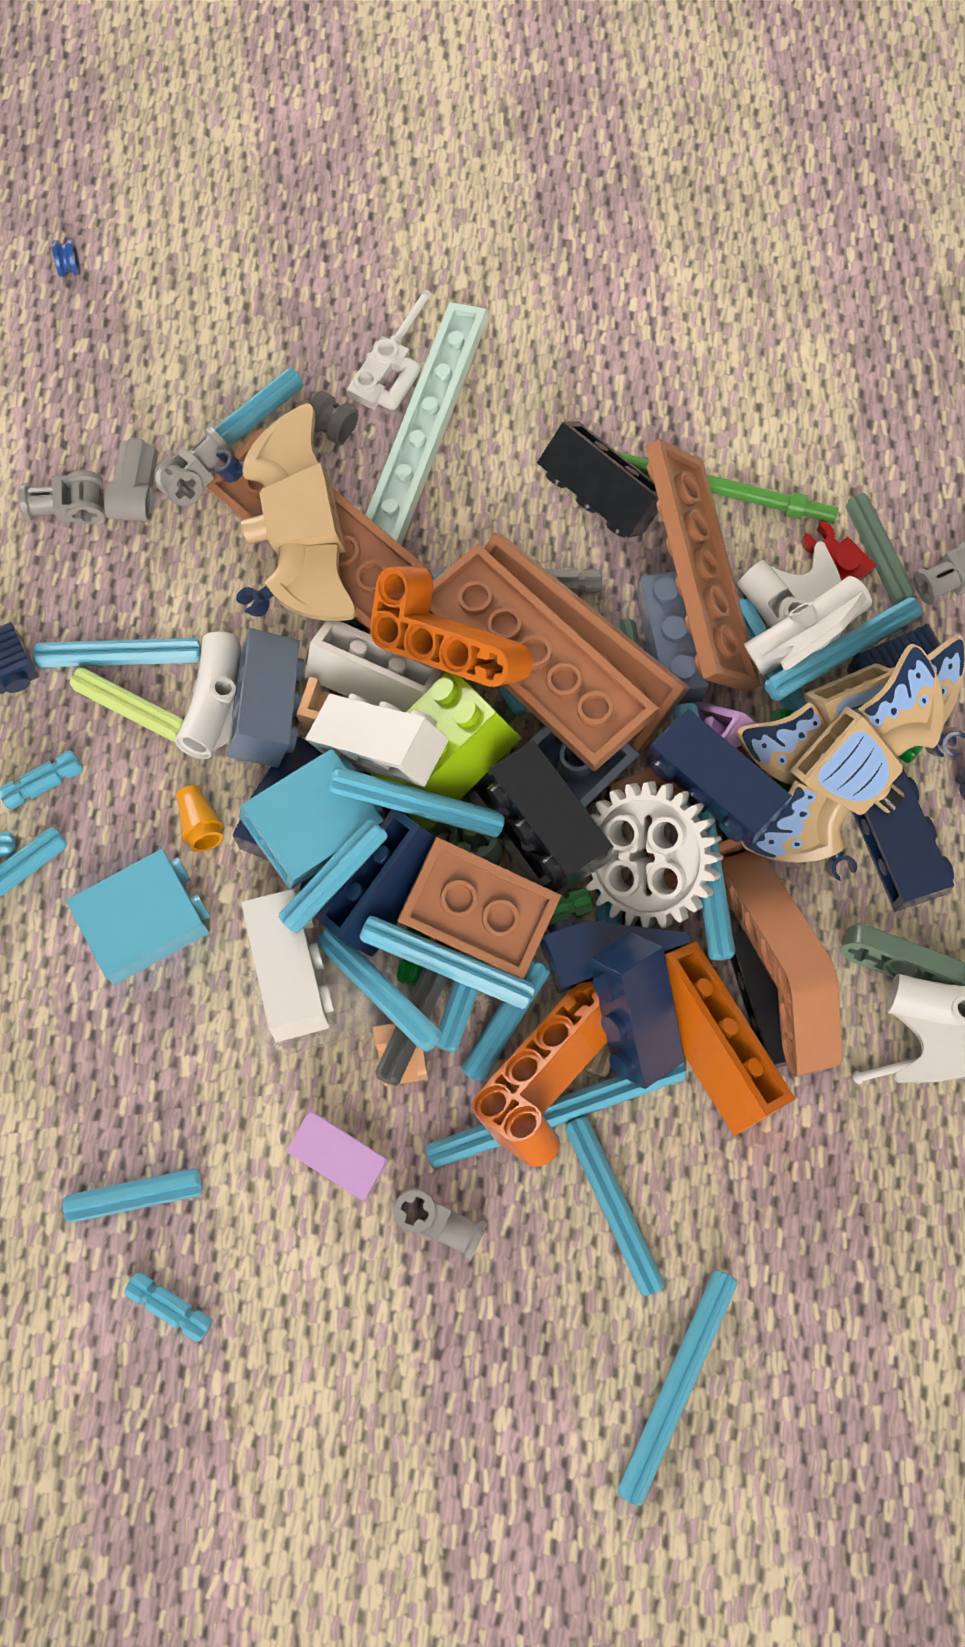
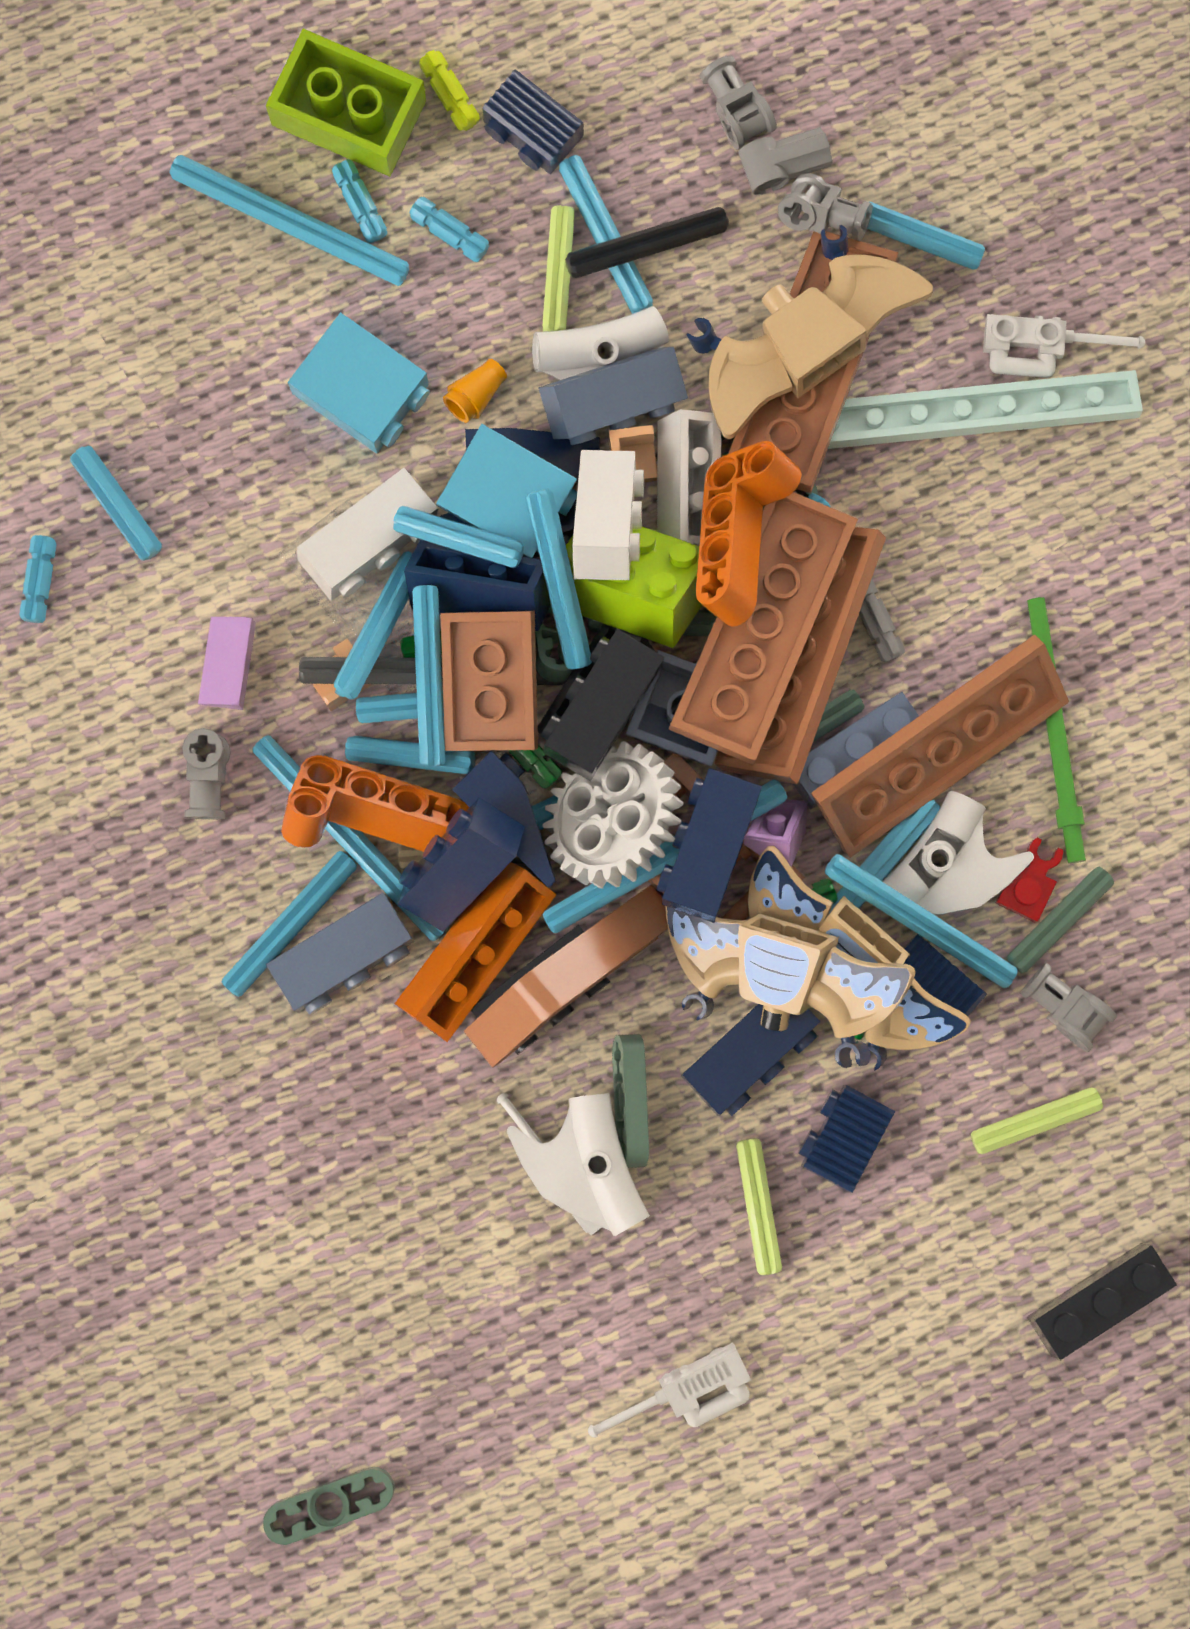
camera: 65 degrees right, 10 degrees up
(144, 619) = (646, 242): none -> black axle
(332, 418) = (946, 314): dark grey wheel -> none
(600, 479) = (1000, 604): black brick -> none
(667, 1166) = (341, 955): none -> sand blue brick
(677, 1388) = (160, 1042): medium azure axle -> none
(809, 627) = (913, 873): white pin -> none

